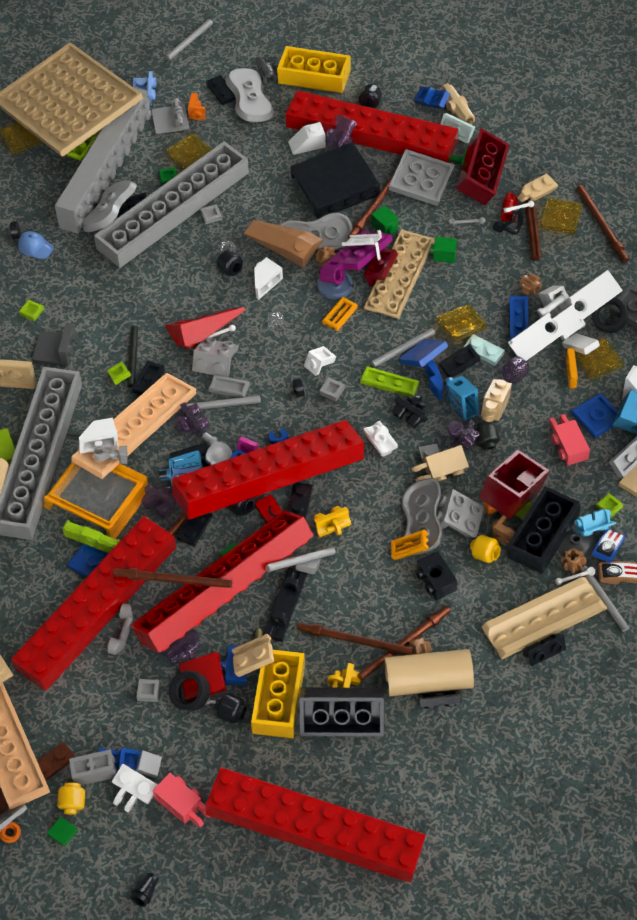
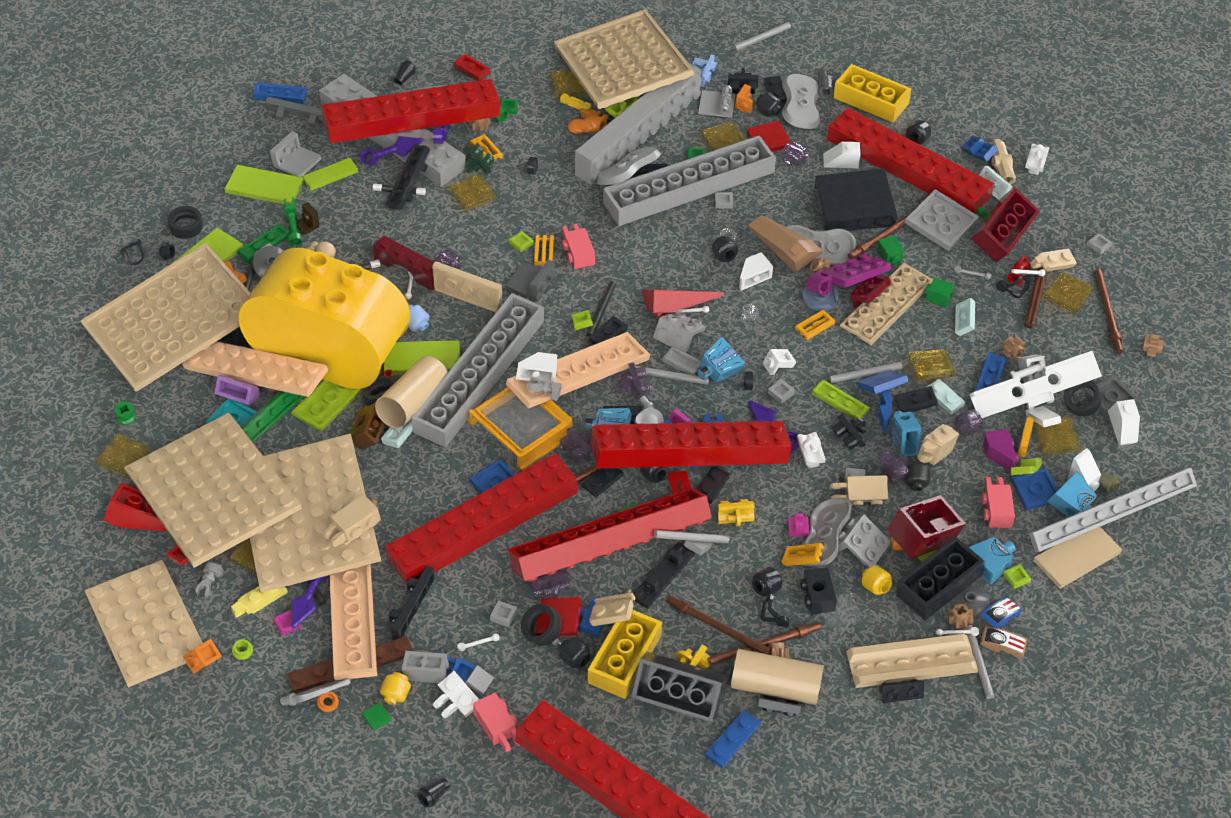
camera: 15 degrees right, 5 degrees down
(34, 154) = (574, 102): none -> yellow axle
(34, 245) = (545, 184): medium blue cap -> none
(53, 301) = (544, 240): none -> light orange tile
(57, 171) = (590, 124): none -> orange animal
(58, 690) = (419, 589): none -> black hinge
(89, 300) = (578, 247): none -> coral hinge
(89, 537) = (498, 458): lime piece -> none
(117, 645) = (488, 564): light grey bar -> none
(119, 735) = (461, 646): none -> white hinge
(135, 574) = (527, 502): copper bar -> none
(185, 89) = (738, 80): none -> black hips
(220, 106) = (768, 104): none -> black head
(233, 135) = (771, 134): none -> red tile
(262, 149) = (794, 153): none -> clear purple head
(265, 377) = (720, 362): none -> dark azure torso
(326, 417) = (763, 413): none -> dark purple piece
(342, 132) = (876, 156): clear purple hips -> none
(366, 239) = (862, 260): white piece -> none
(385, 581) = (767, 581): none -> black head
(394, 517) = (798, 526): none -> dark pink tile
(407, 745) = (732, 739): none -> blue plate
(411, 615) = (781, 621): none -> black piece
(475, 267) = (965, 317): none -> light aqua plate
(487, 93) = (1036, 158): none -> white hips
(501, 532) = (899, 566): medium nougat bracket -> none
(552, 386) = (1000, 448): none -> magenta slope
(571, 160) = (1099, 243): none -> light grey tile
(583, 397) = (1027, 466): none -> lime slope
(585, 491) = (996, 556): none -> dark azure torso
(587, 526) = (985, 586): medium azure hinge -> none

